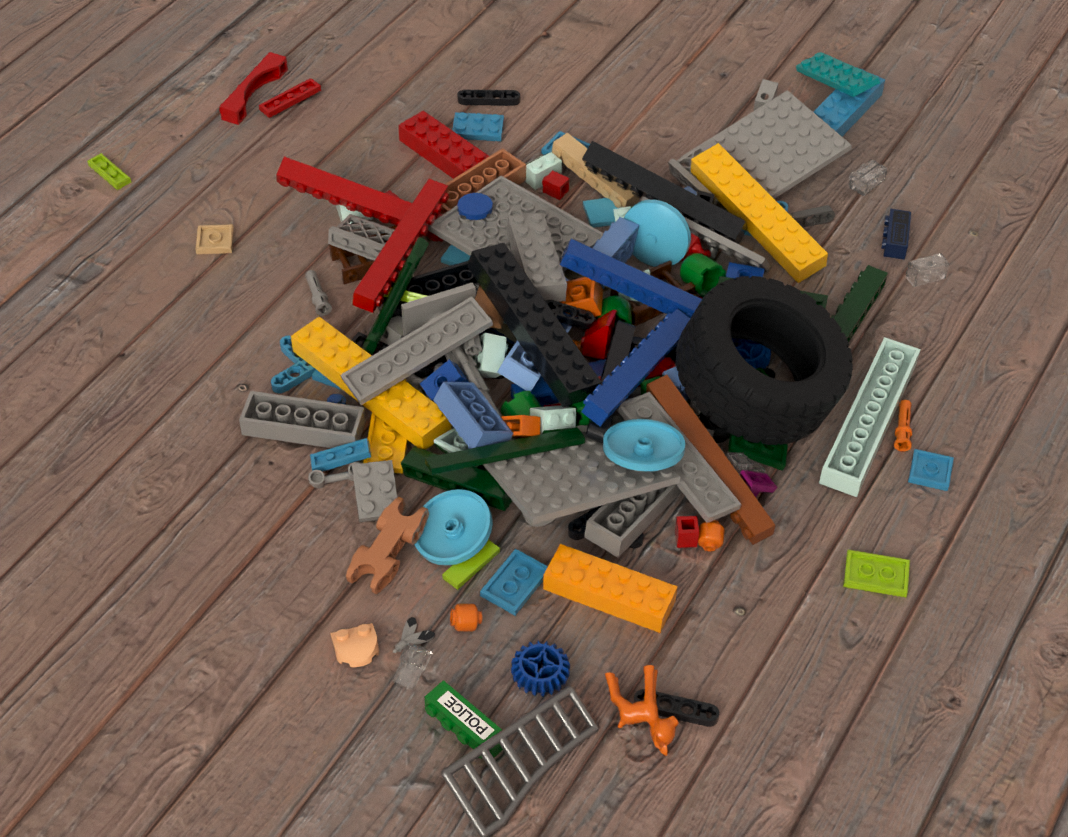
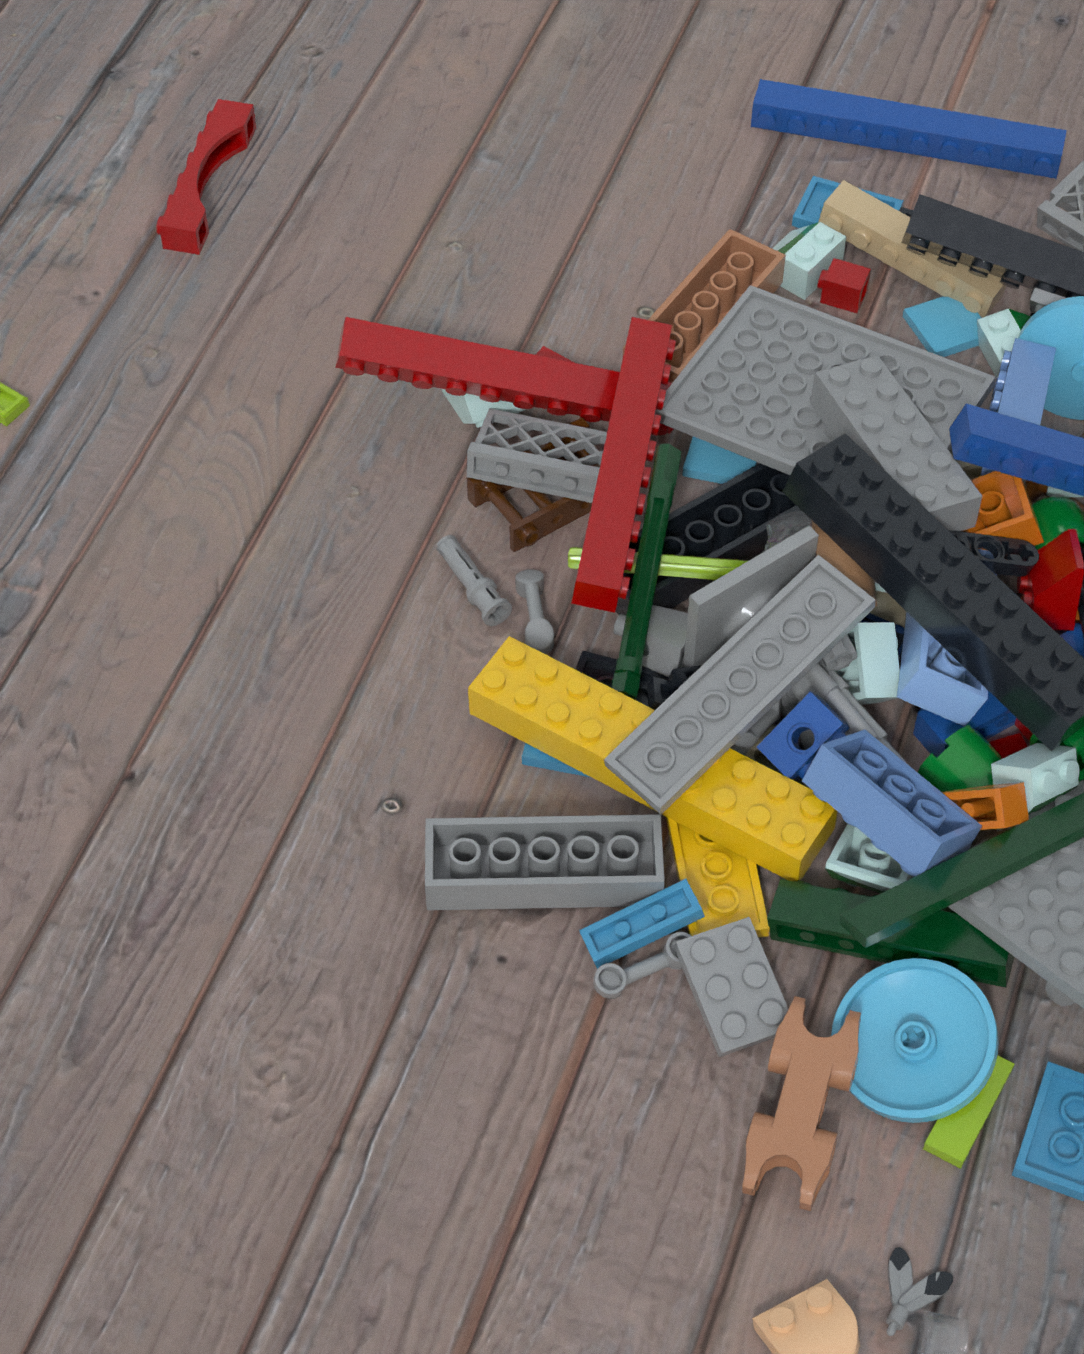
camera: 10 degrees left, 5 degrees up
(214, 239) = (233, 499): tan tile -> none
(283, 381) = (491, 743): dark azure beam -> none
(290, 97) = (282, 185): red plate -> none
(337, 398) = (588, 803): blue plate -> none
(340, 320) = (539, 631): none -> light grey bar
(439, 144) = (606, 240): red brick -> none
(465, 617) = (1006, 1231): orange head -> none
(475, 206) = (729, 357): blue tile -> none
(478, 126) = (655, 189): dark azure plate -> none
(507, 97) = (655, 131): black beam -> none
(619, 115) = (908, 128): none -> blue brick

